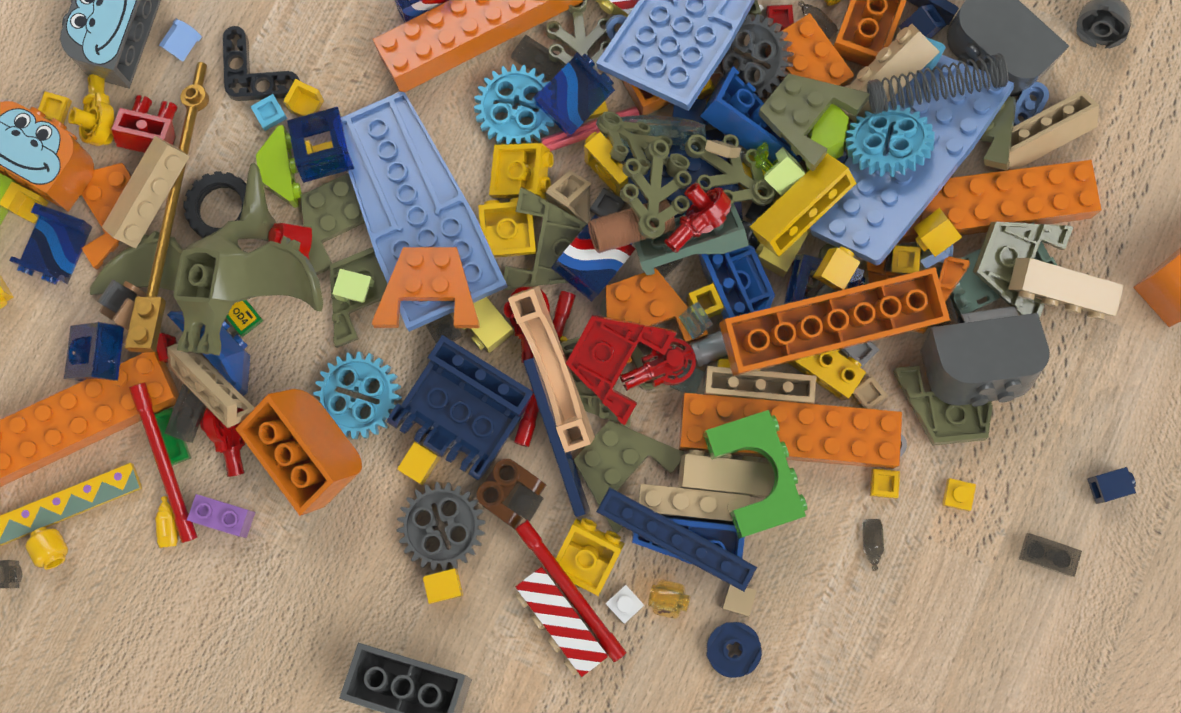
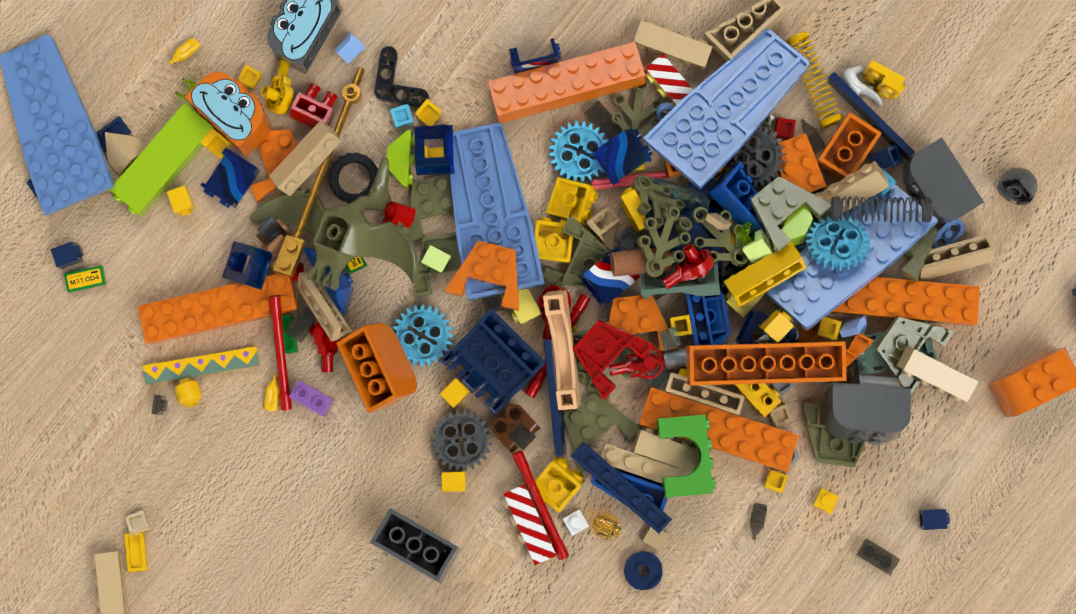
camera: 15 degrees right, 5 degrees up
(936, 233) = (854, 315): yellow brick -> none

